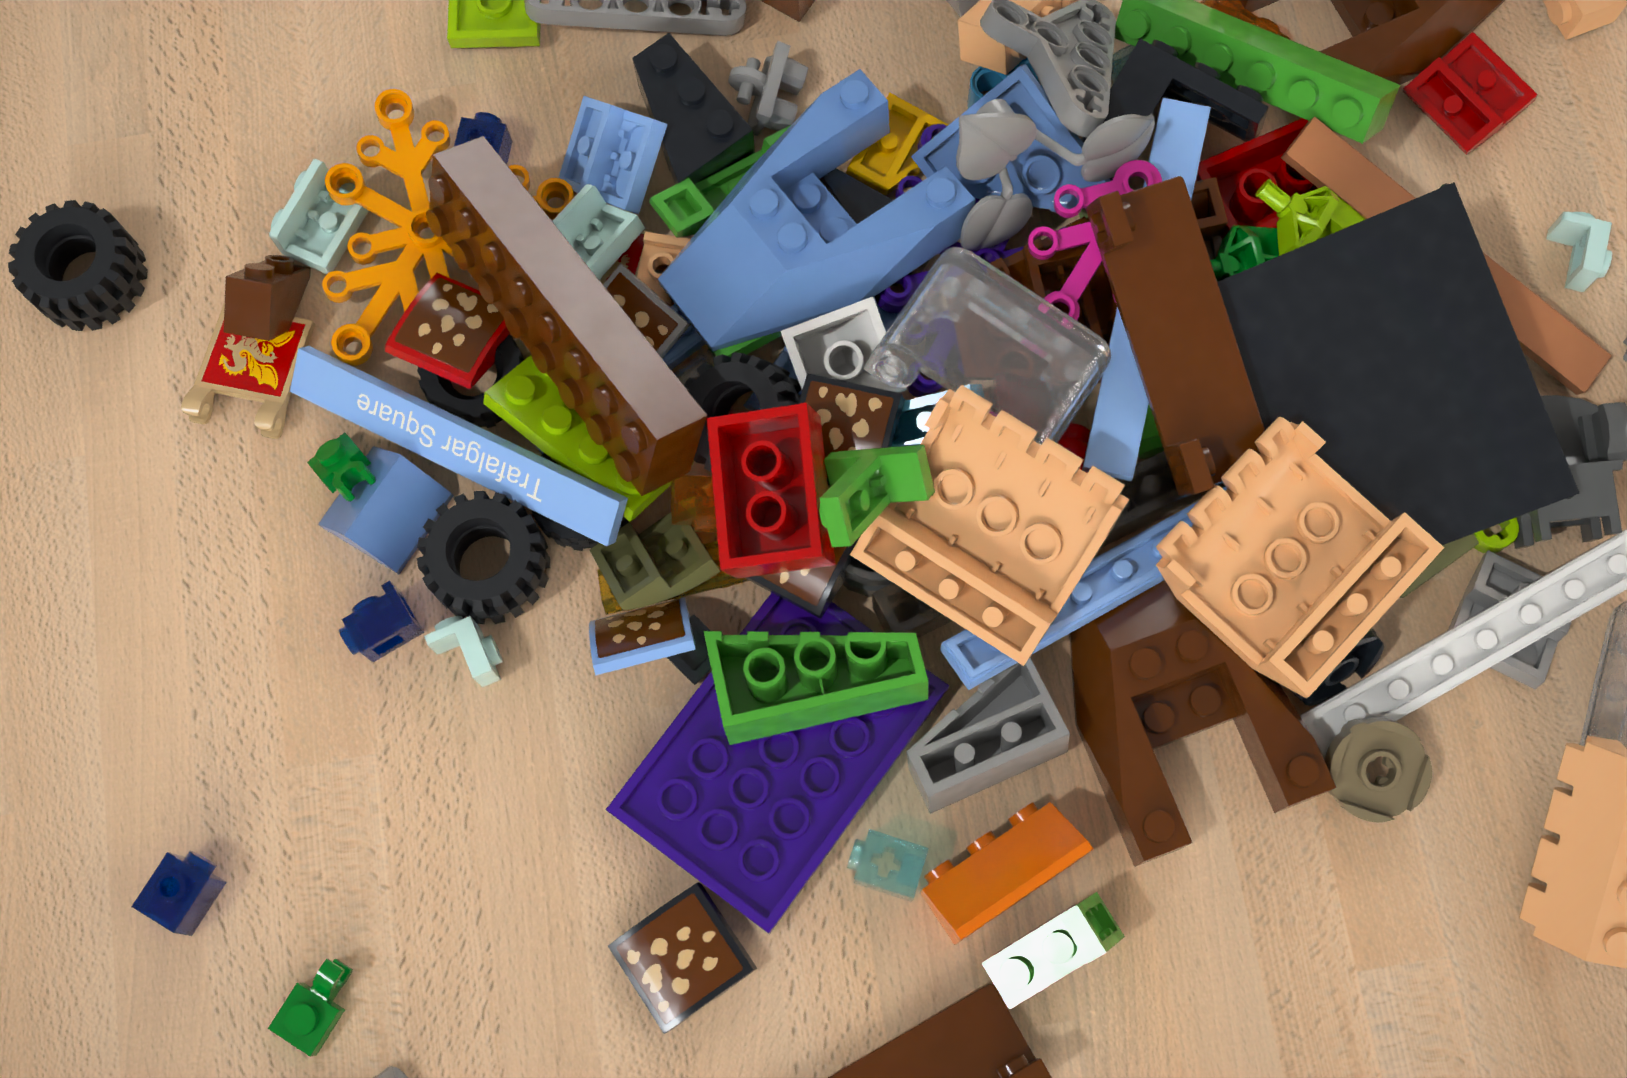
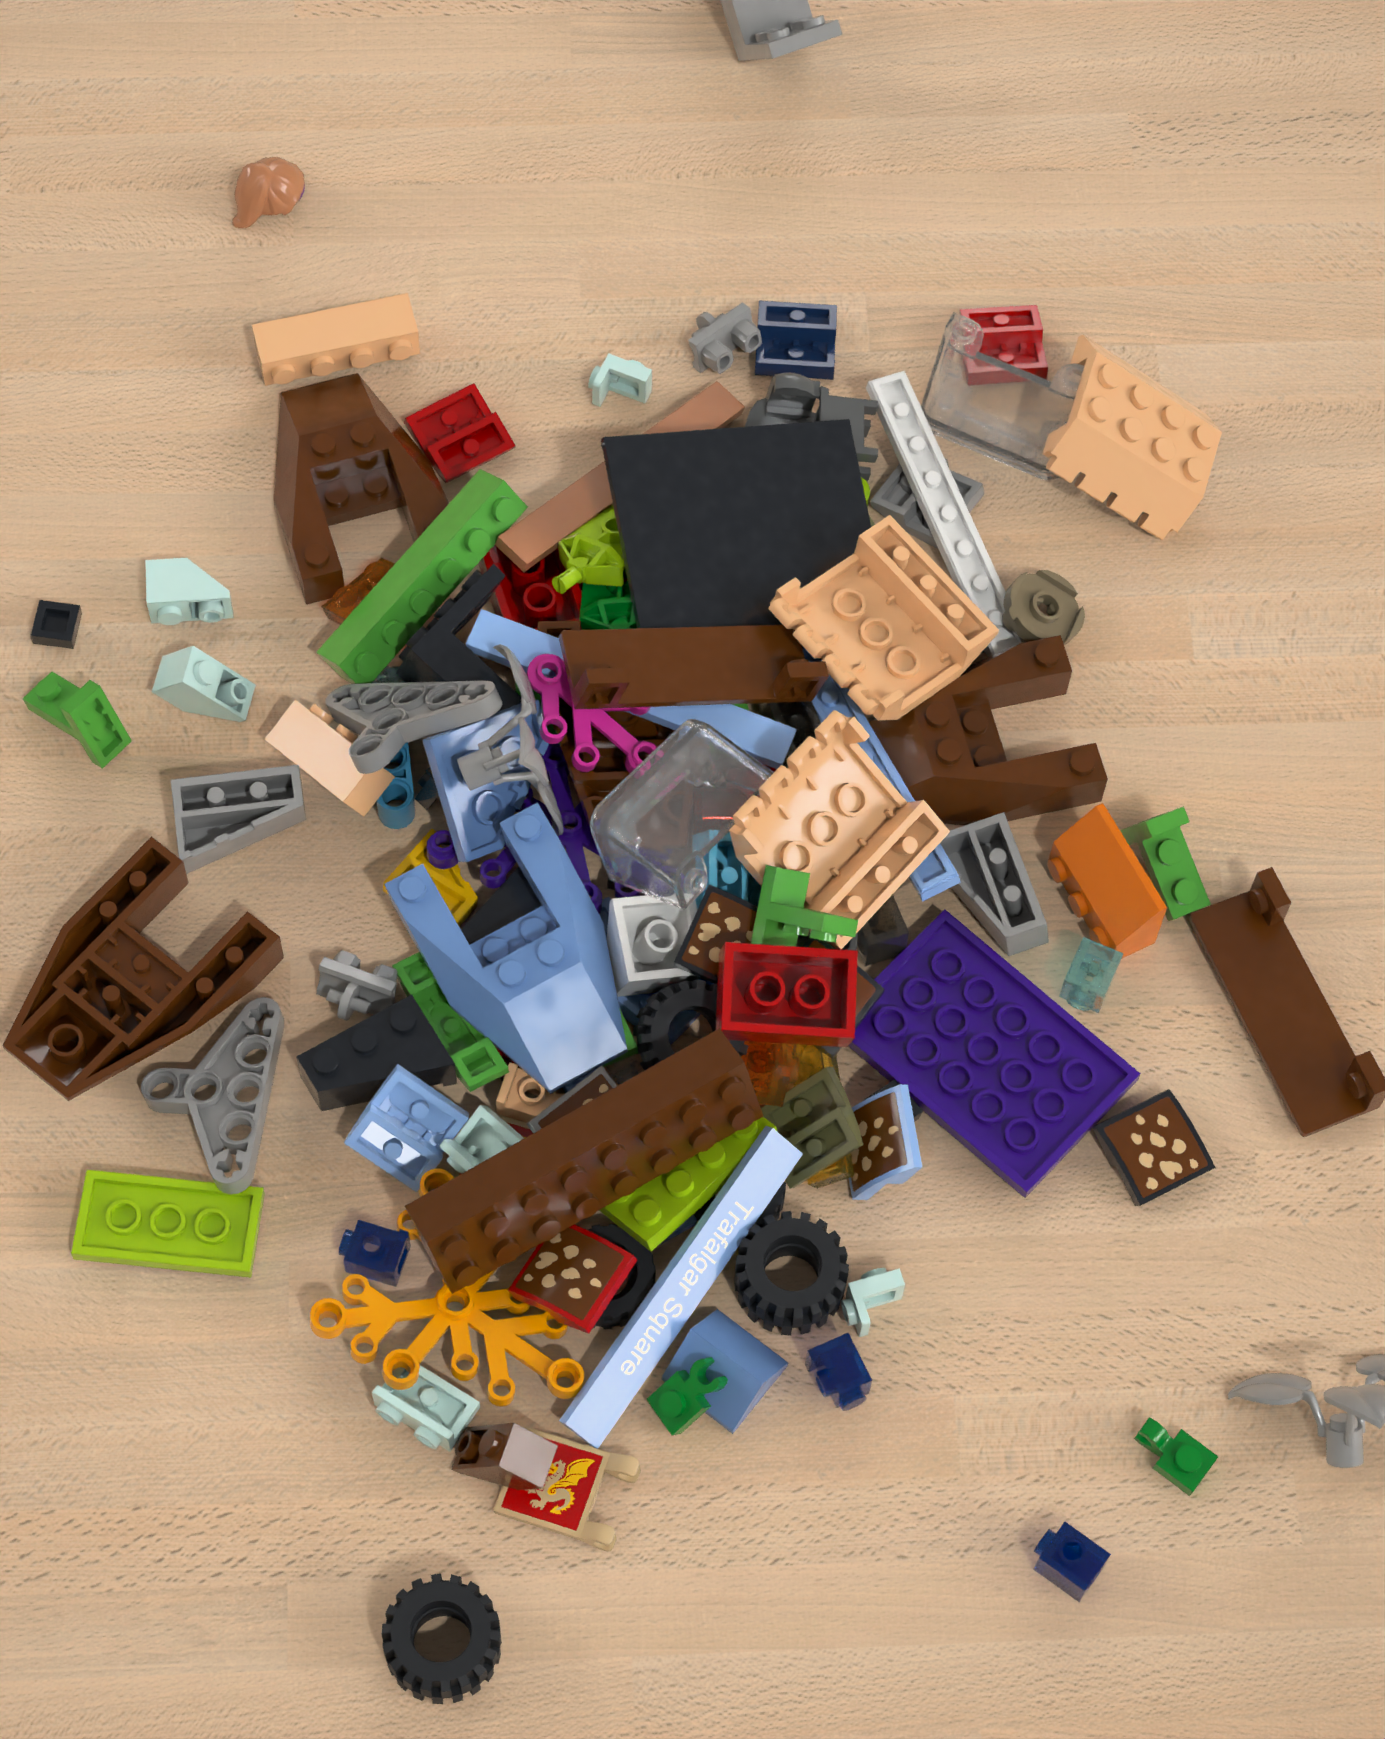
camera: 90 degrees left, 10 degrees down
(810, 678) = (937, 1019): bright green wedge -> none

